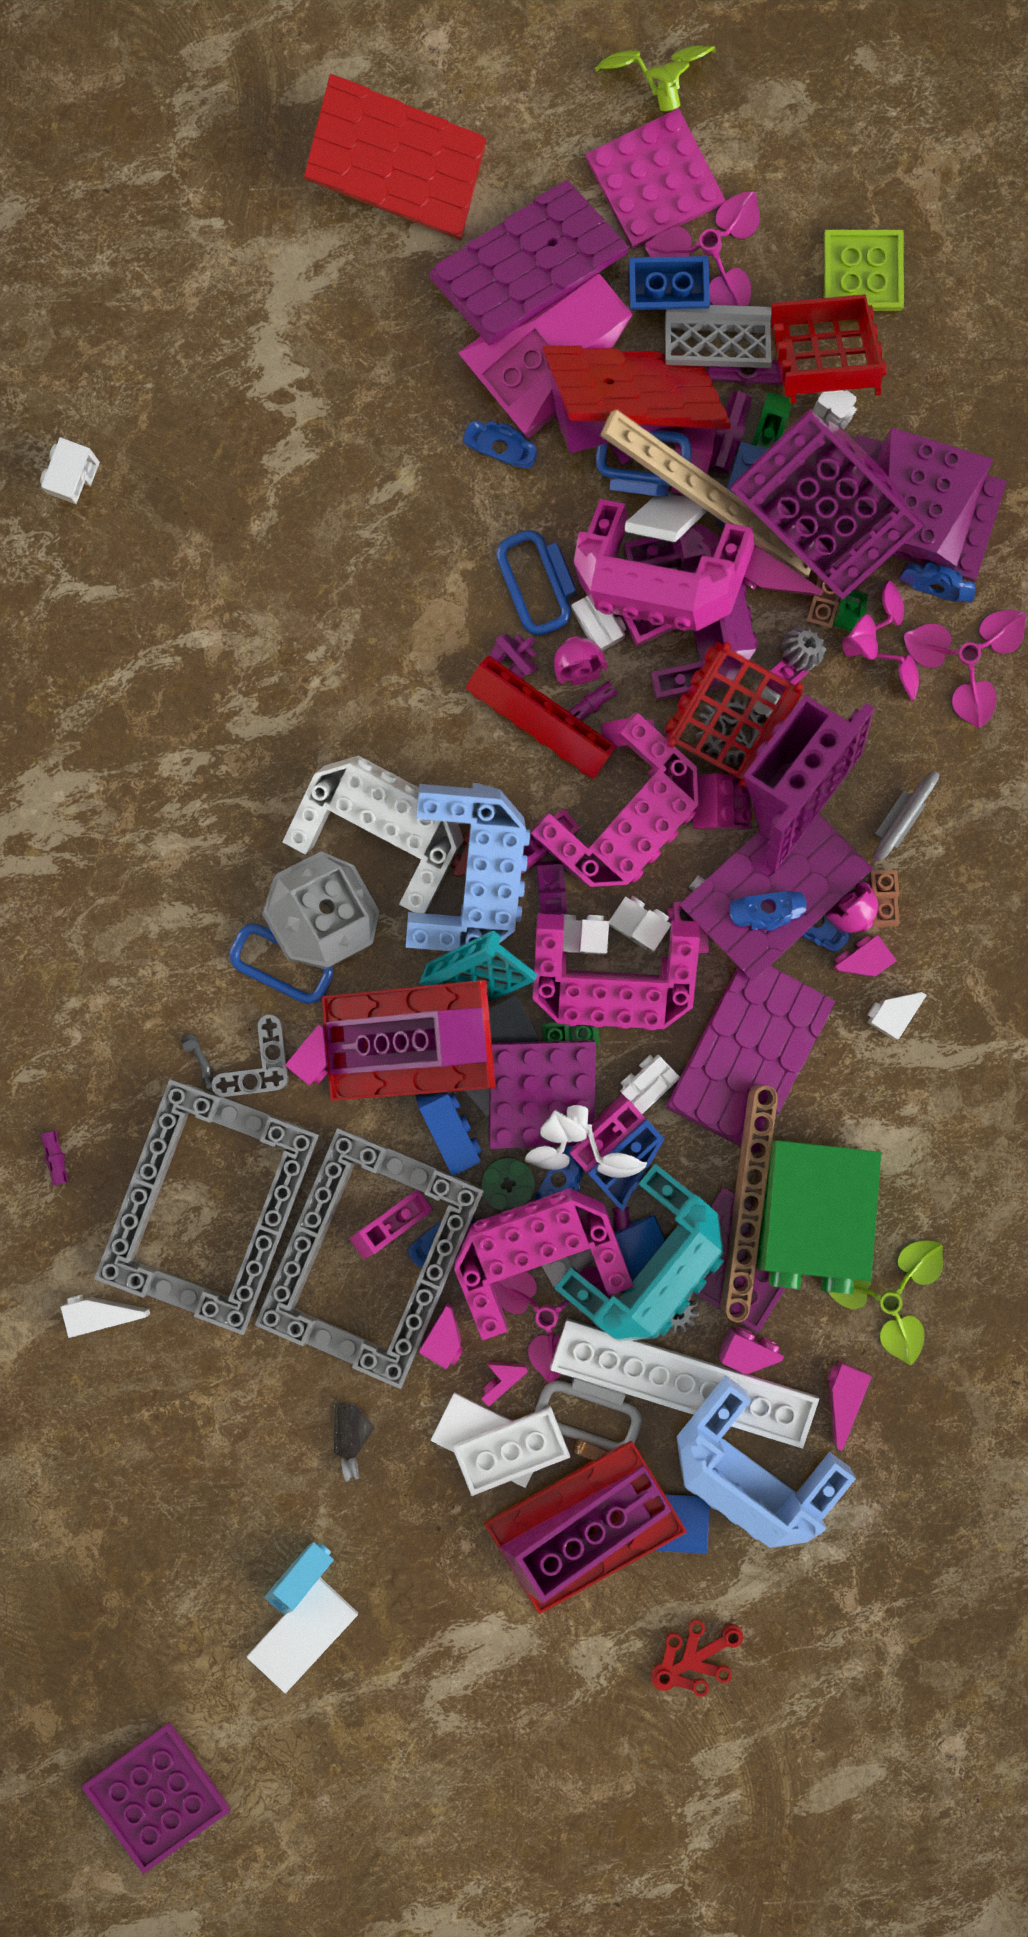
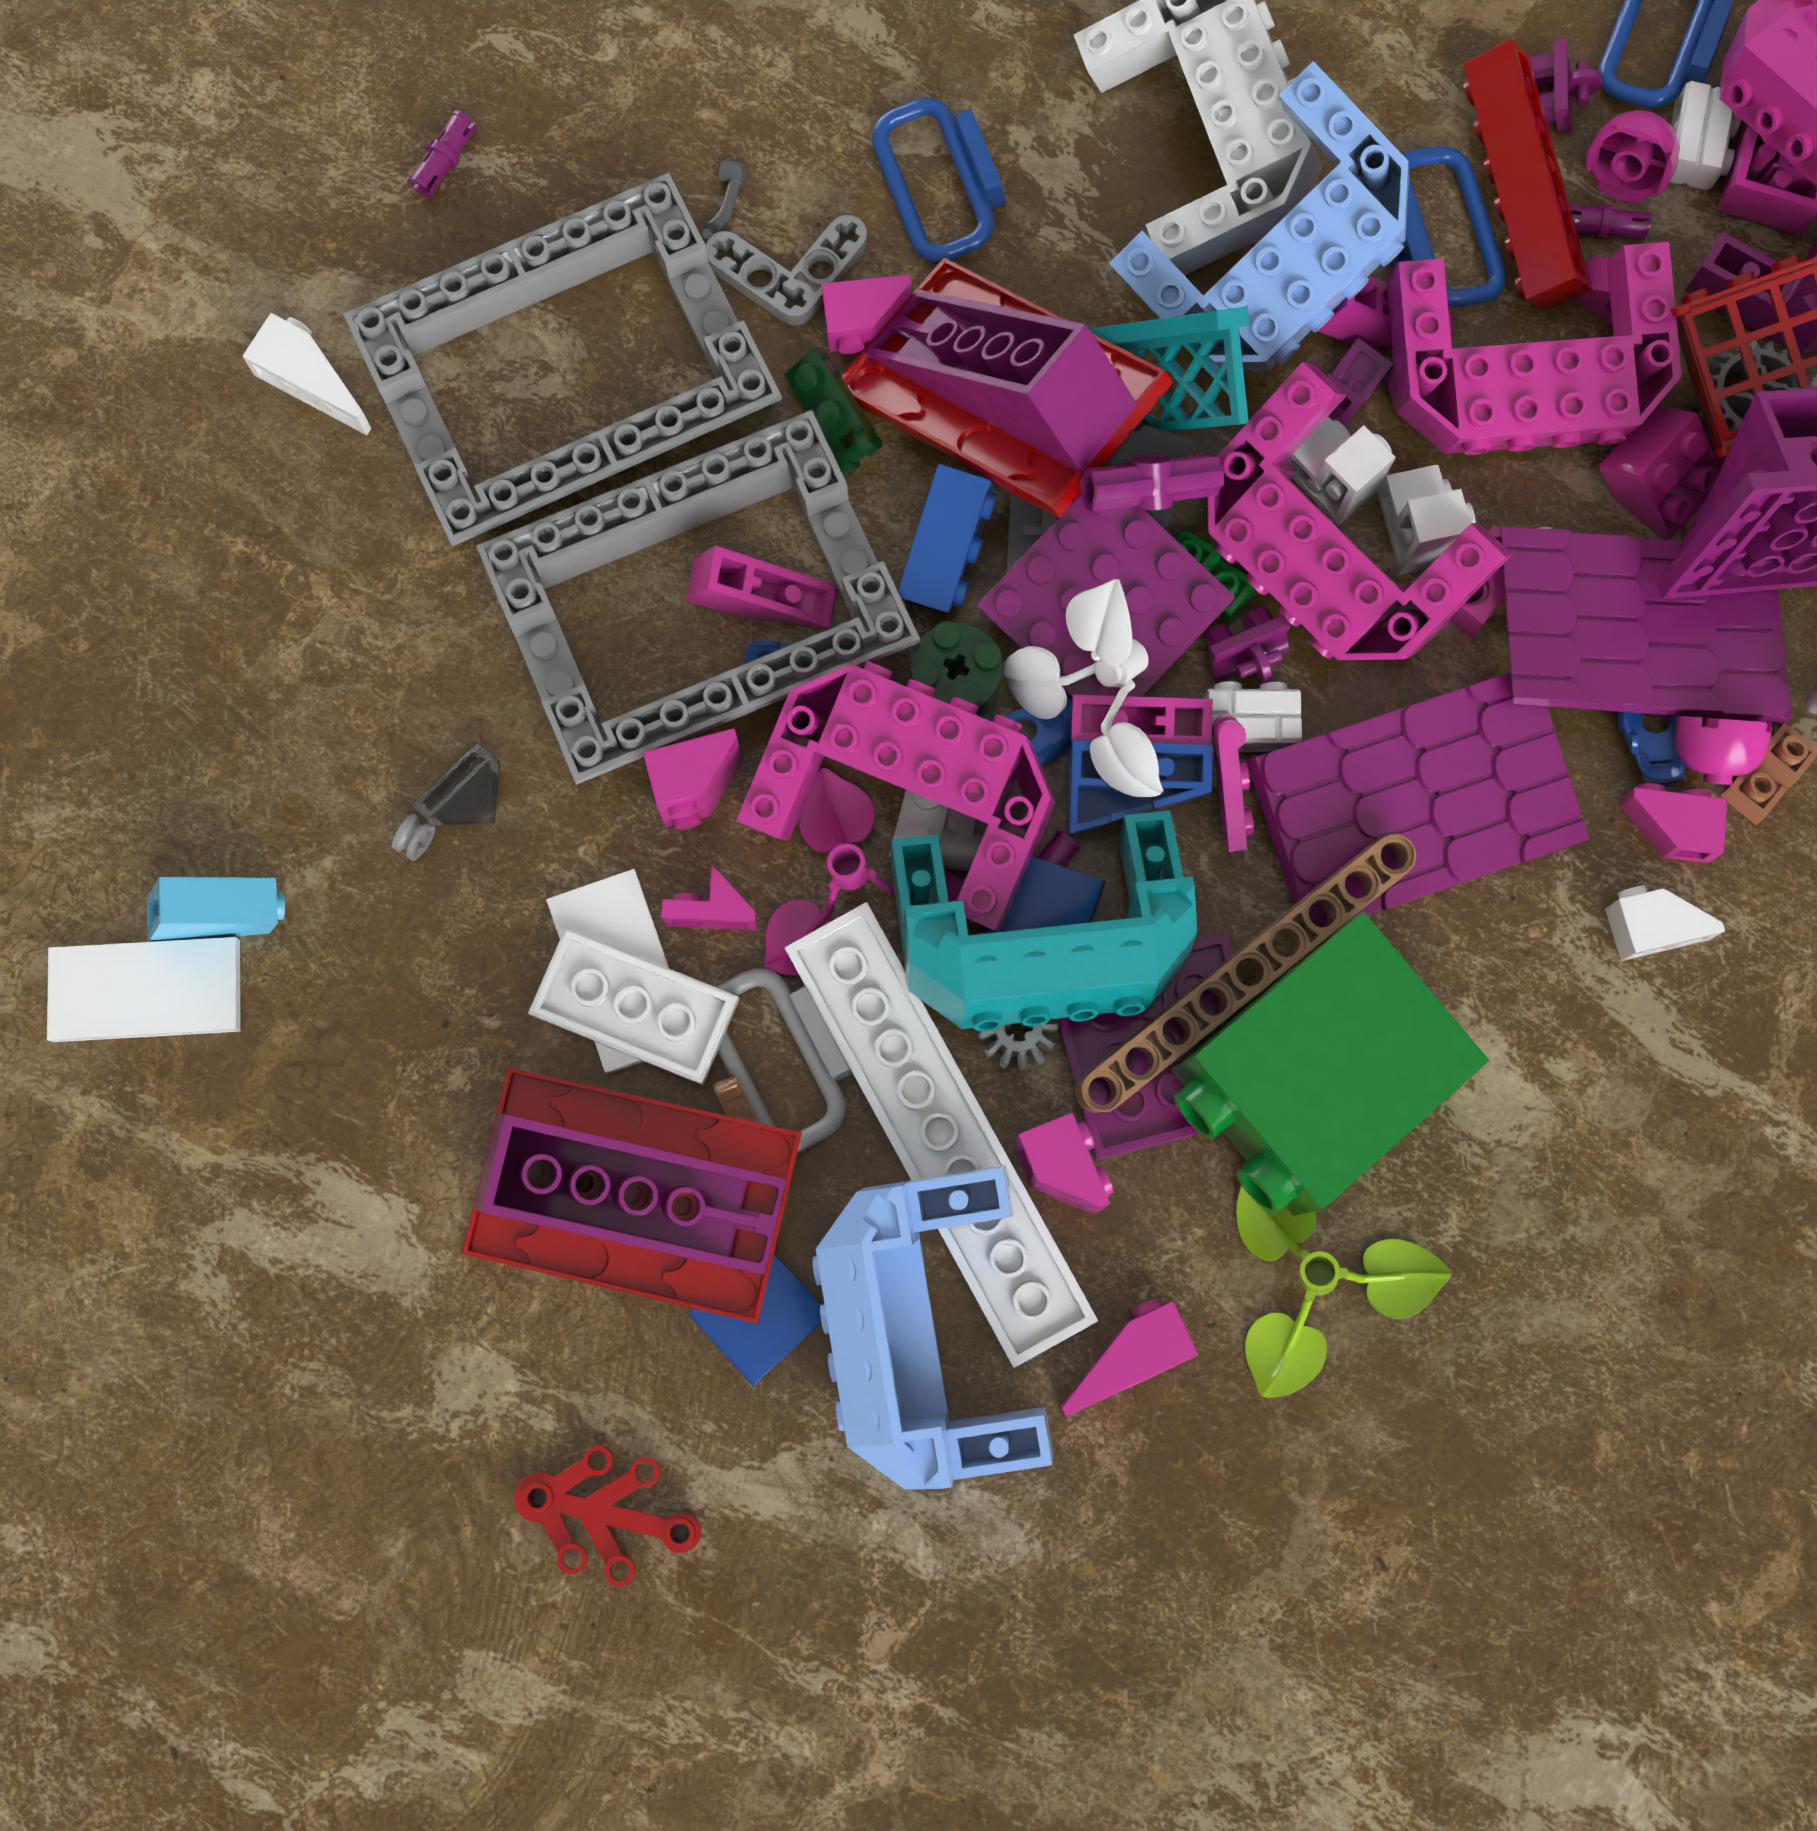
camera: 45 degrees right, 10 degrees down
(303, 929) = (1013, 169): light grey piece -> none
(343, 1113) = (835, 408): none -> dark green plate
(519, 795) = (1417, 242): none -> blue bar
(519, 1035) = (1151, 482): none -> magenta piece
(622, 1053) = (1248, 651): none -> magenta hips
(668, 1123) = (1231, 781): none -> dark pink plate
(748, 910) = (1588, 611): blue piece -> none

